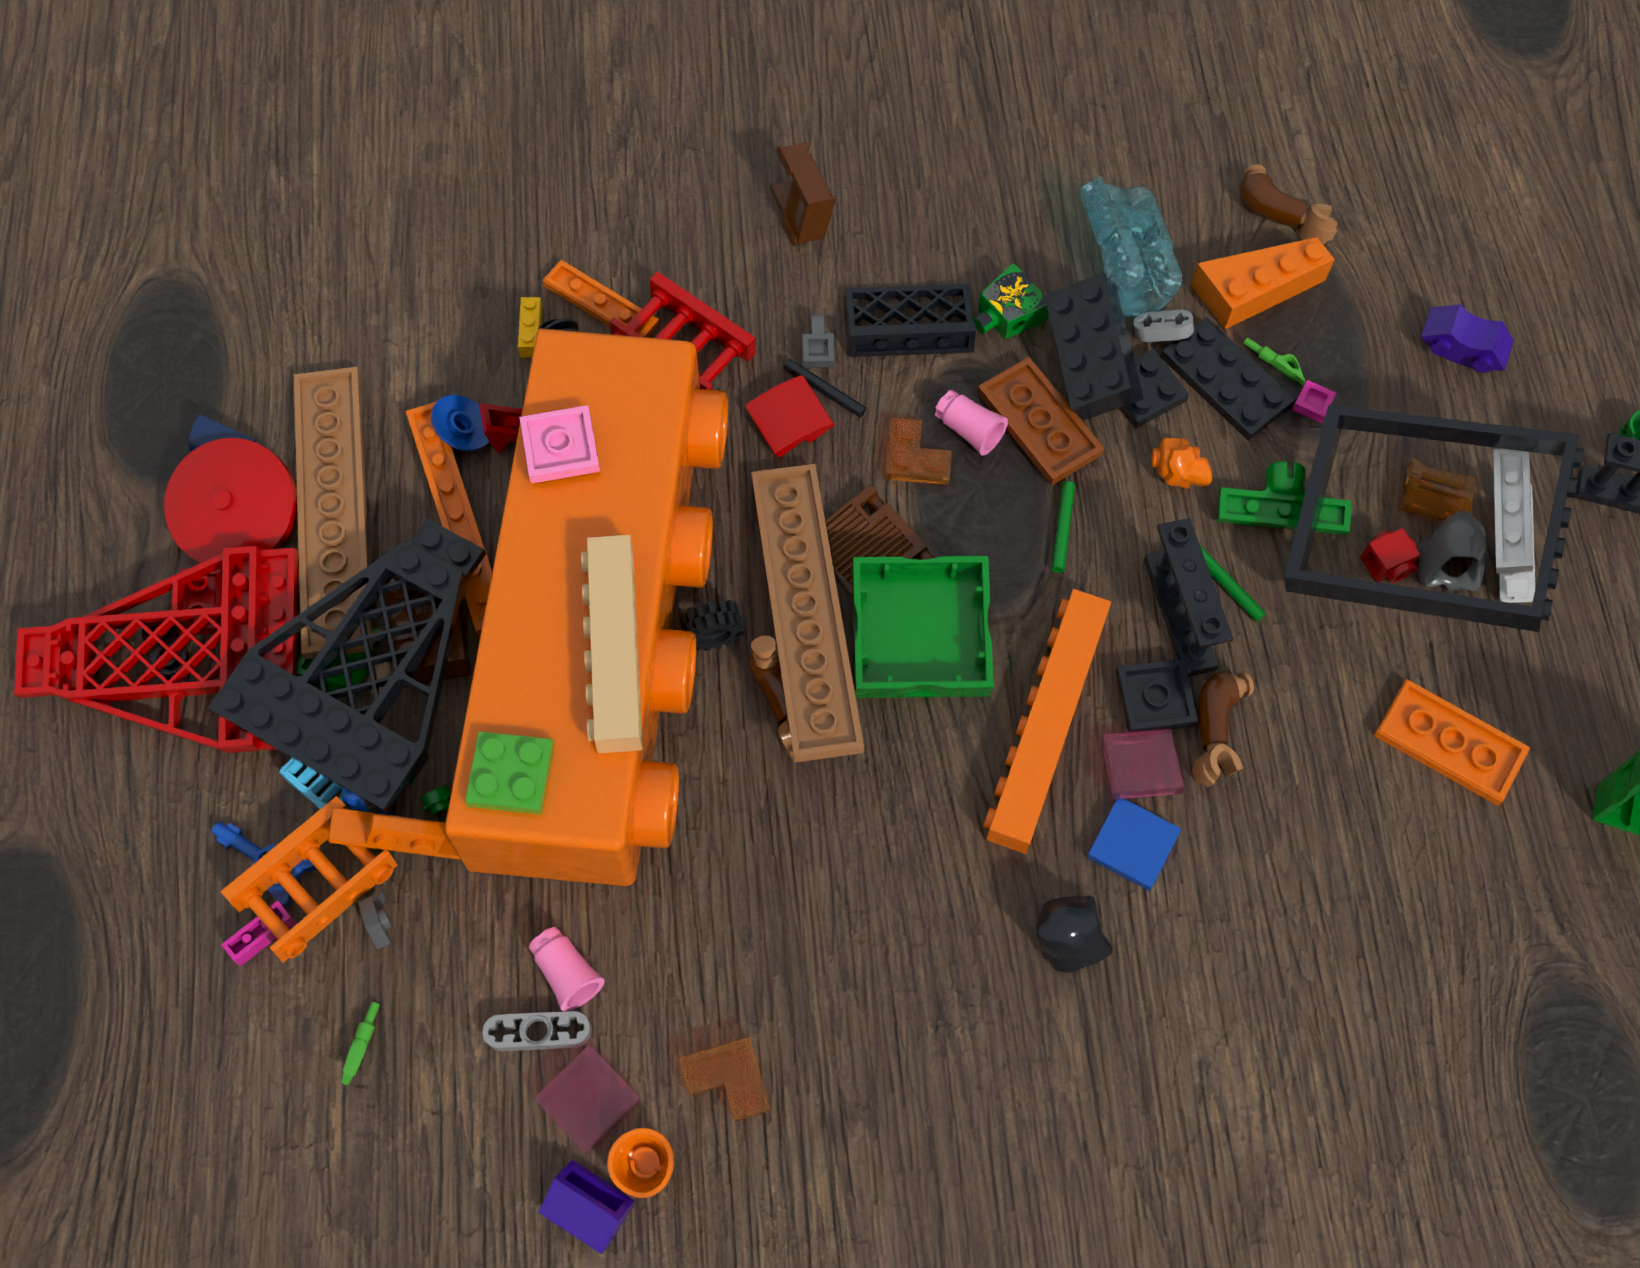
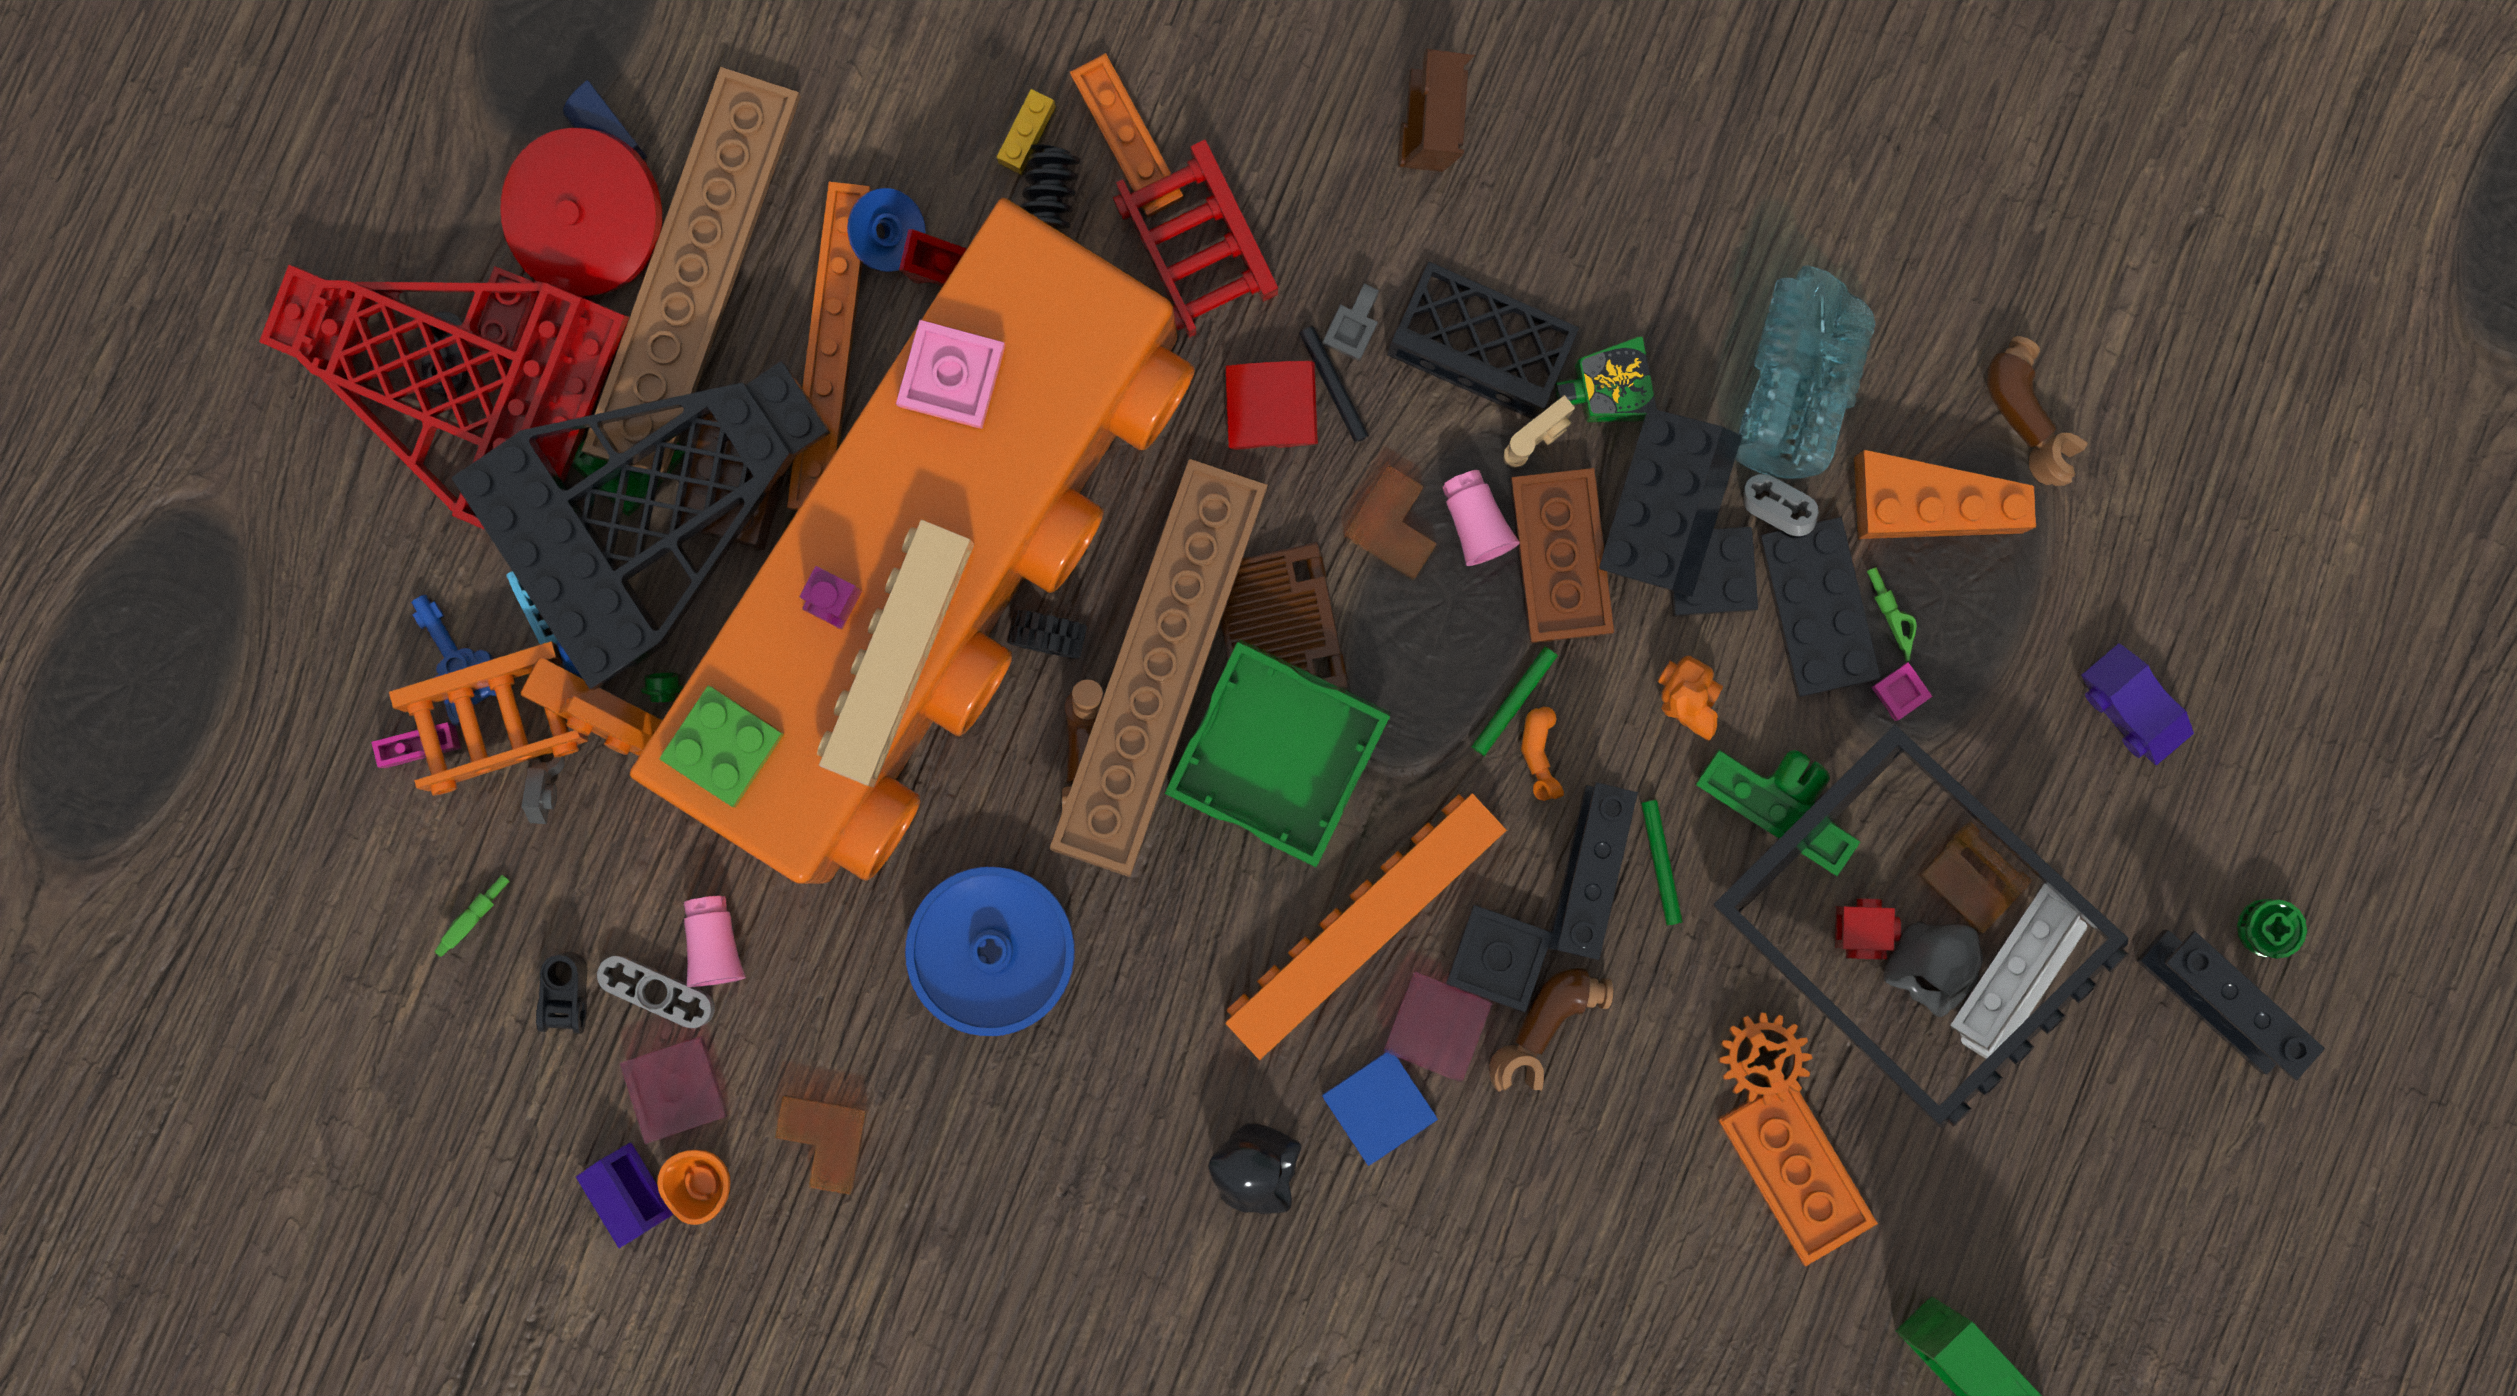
camera: 30 degrees right, 20 degrees up
(463, 1074) = (562, 997): none -> black piece
(543, 625) = (829, 597): none -> magenta brick
(785, 866) = (990, 951): none -> blue dish
(981, 346) = (1546, 427): none -> tan plate
(1090, 537) = (1532, 748): none -> orange arm
(1390, 683) = (1773, 1077): none -> orange gear

